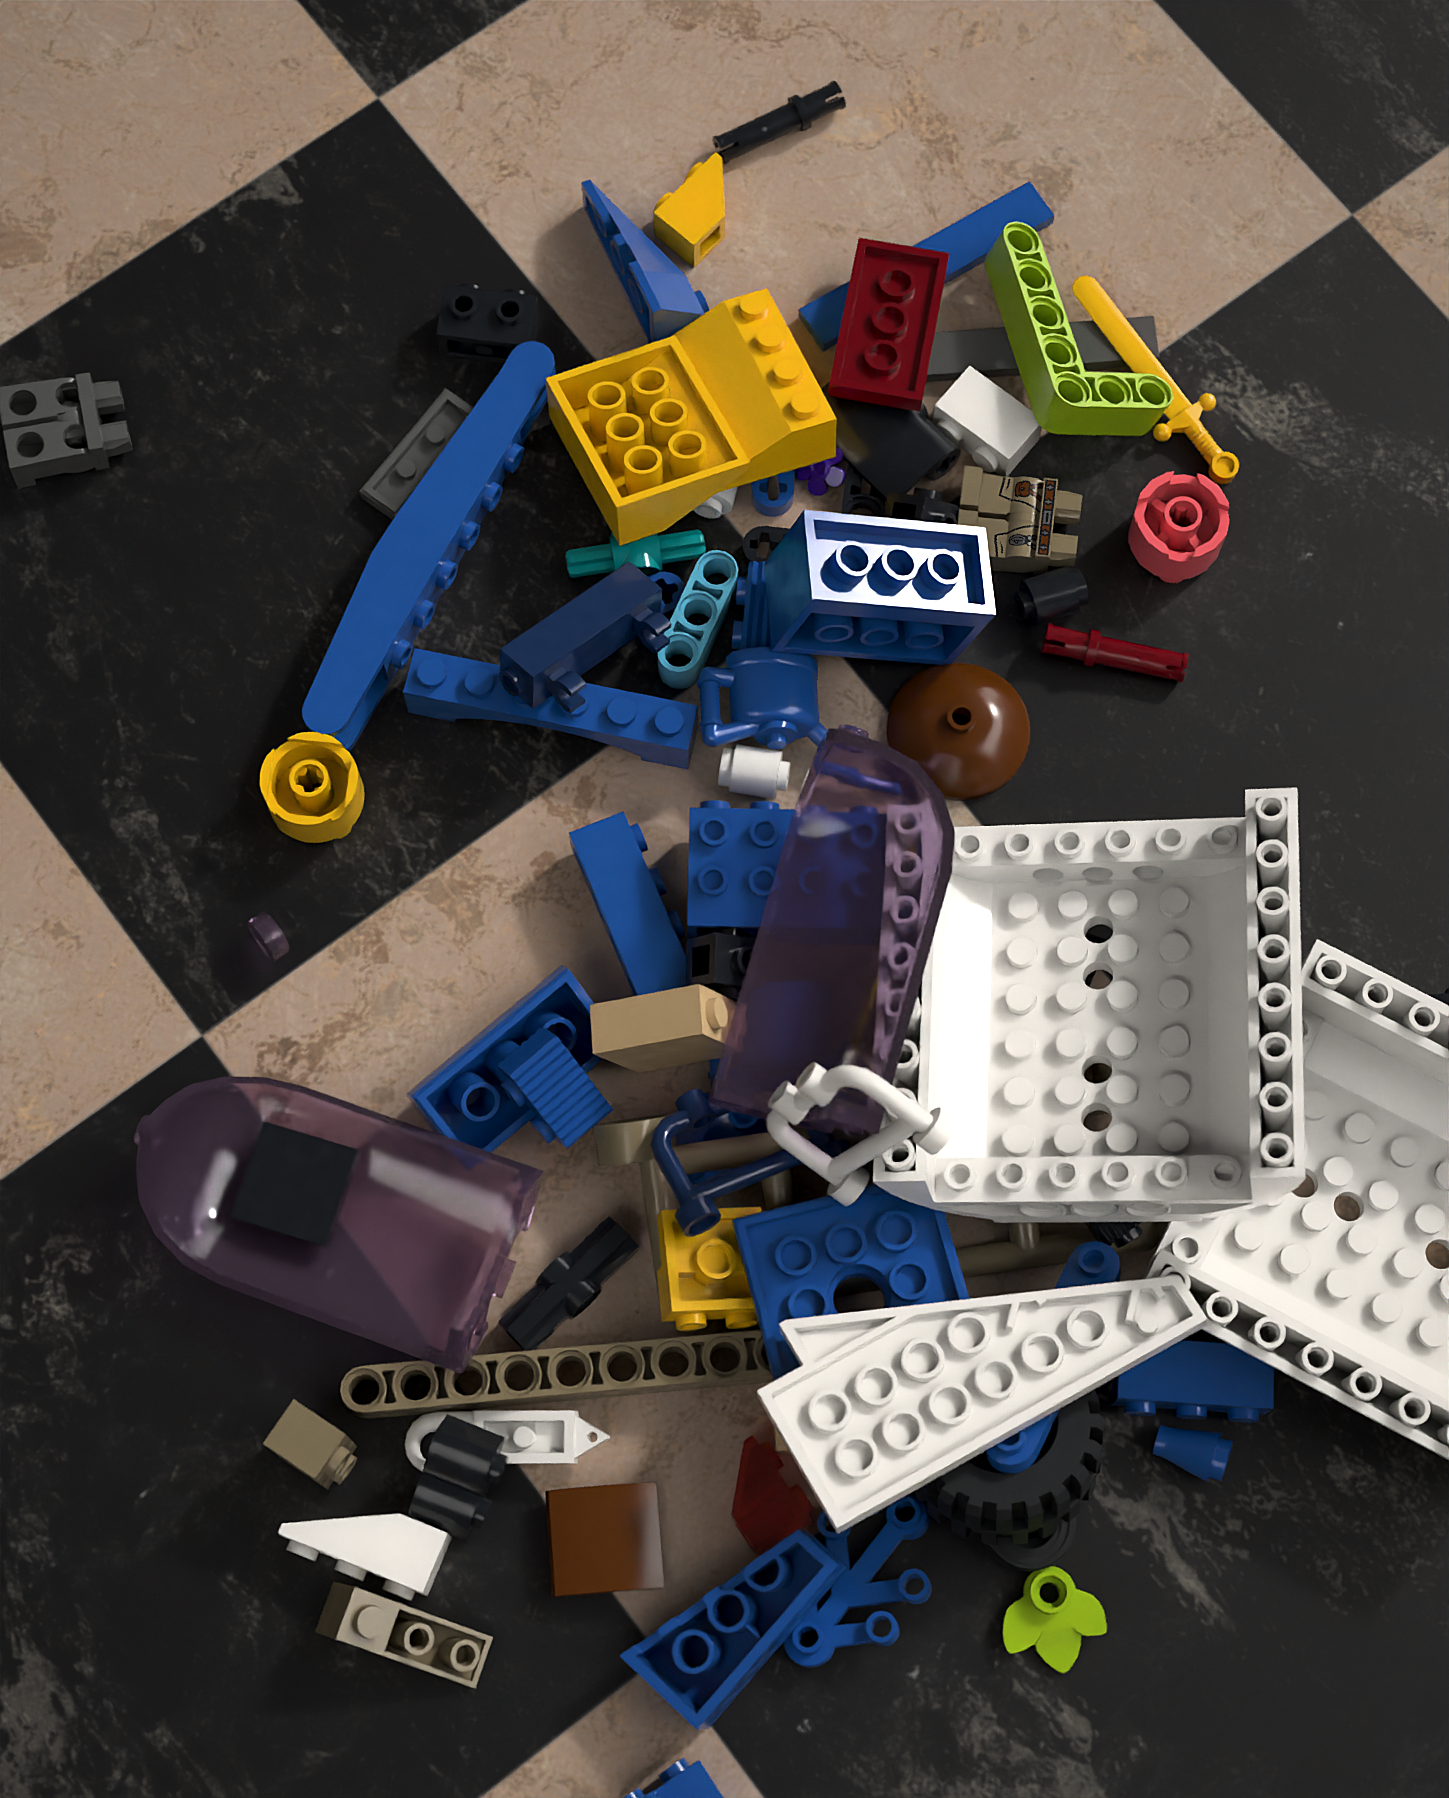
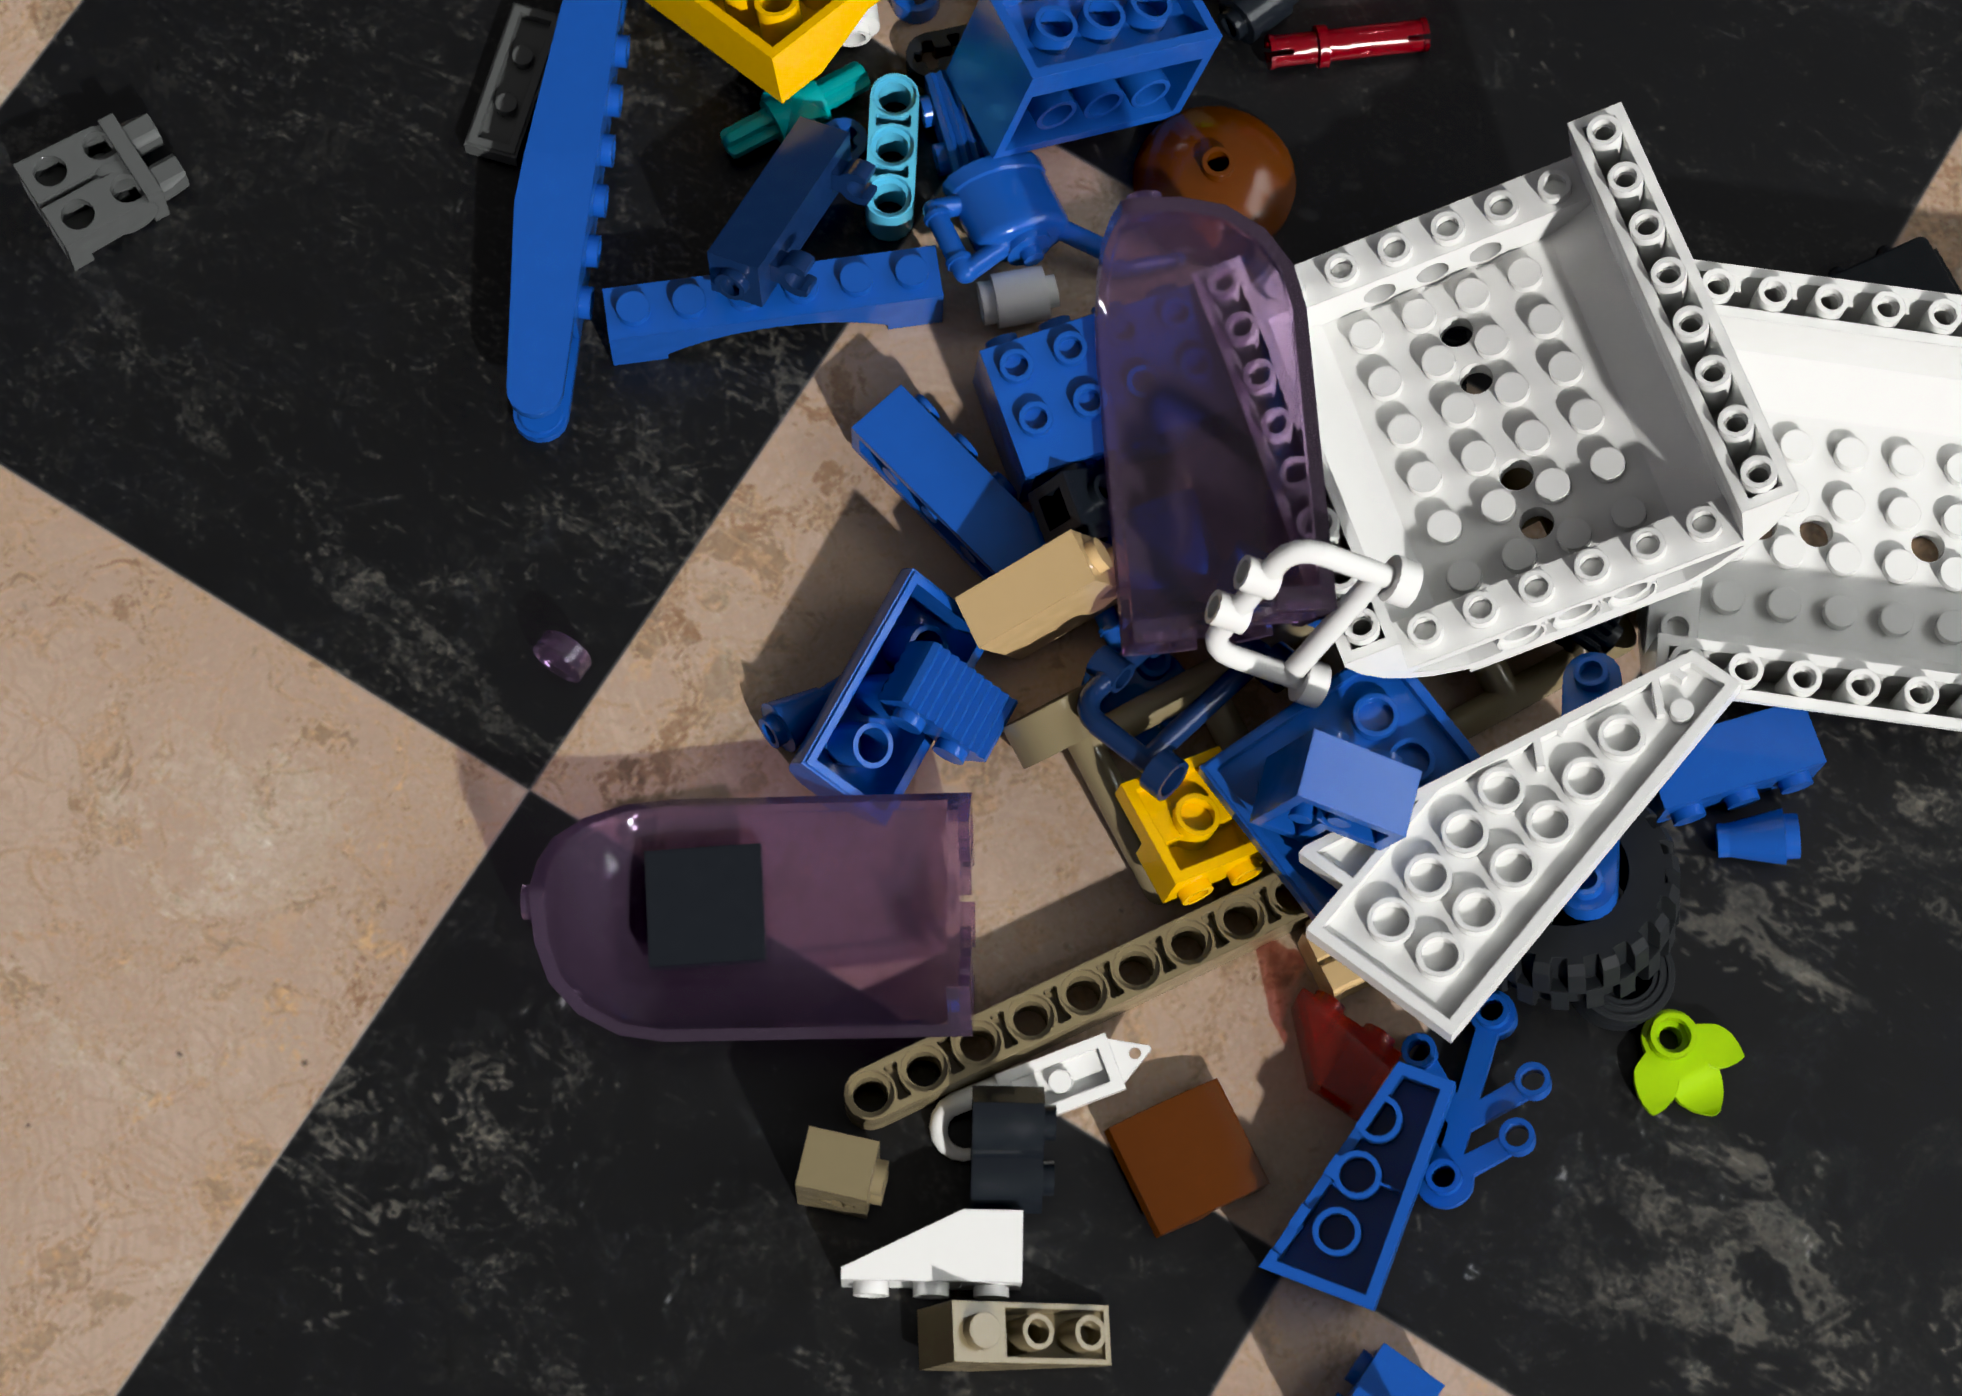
camera: 25 degrees left, 0 degrees up
(293, 769) = (553, 509): yellow brick -> none
(430, 1051) = (791, 717): none -> blue cone
(569, 1285) = (1041, 906): black piece -> none
(821, 1279) = (1338, 788): none -> brick

